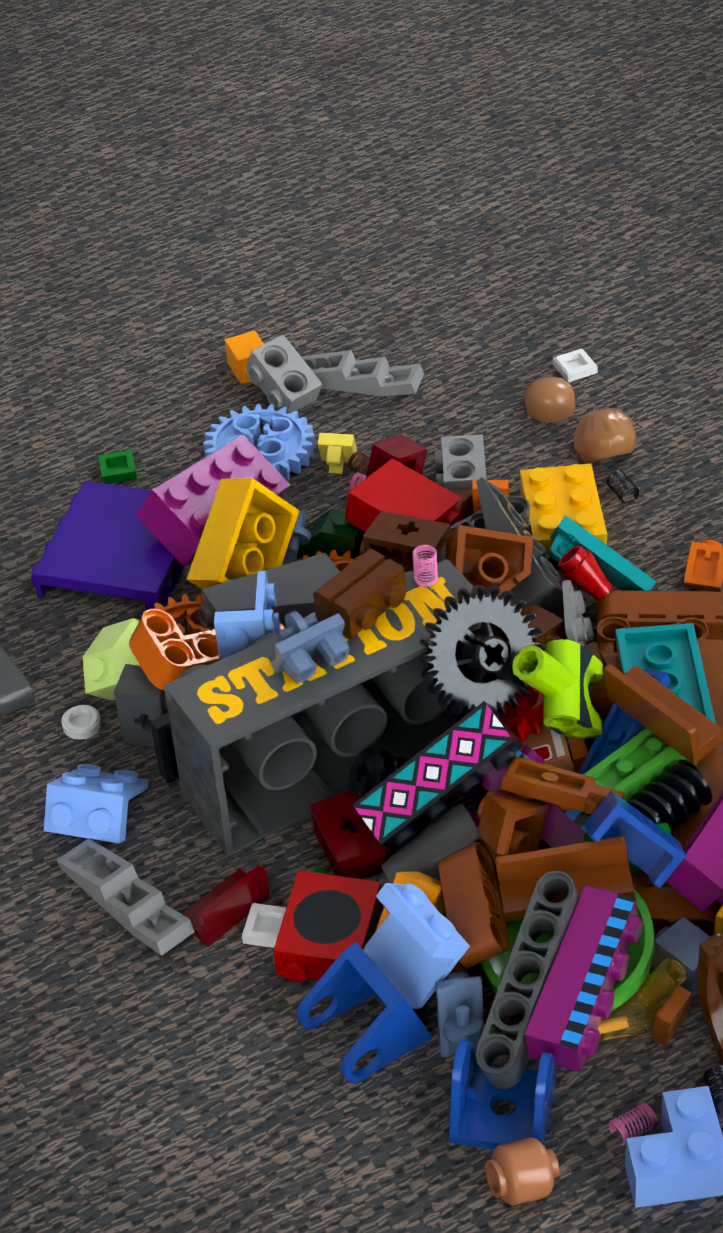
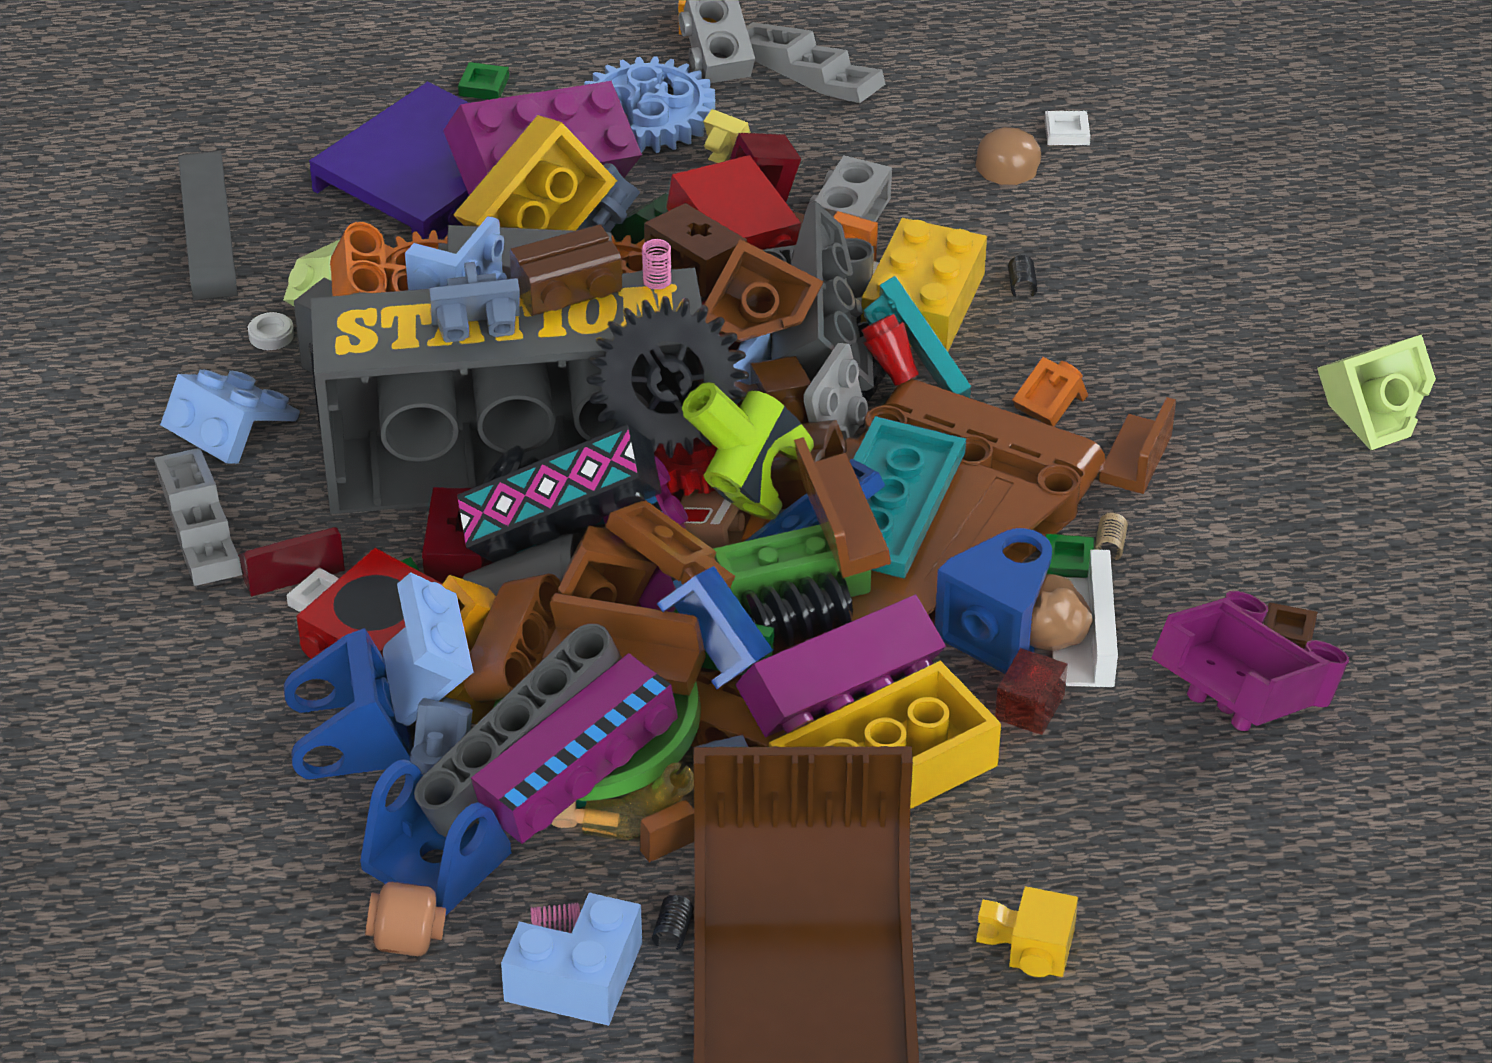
camera: 20 degrees right, 0 degrees up
(604, 435) = (1037, 212): medium nougat hair -> none

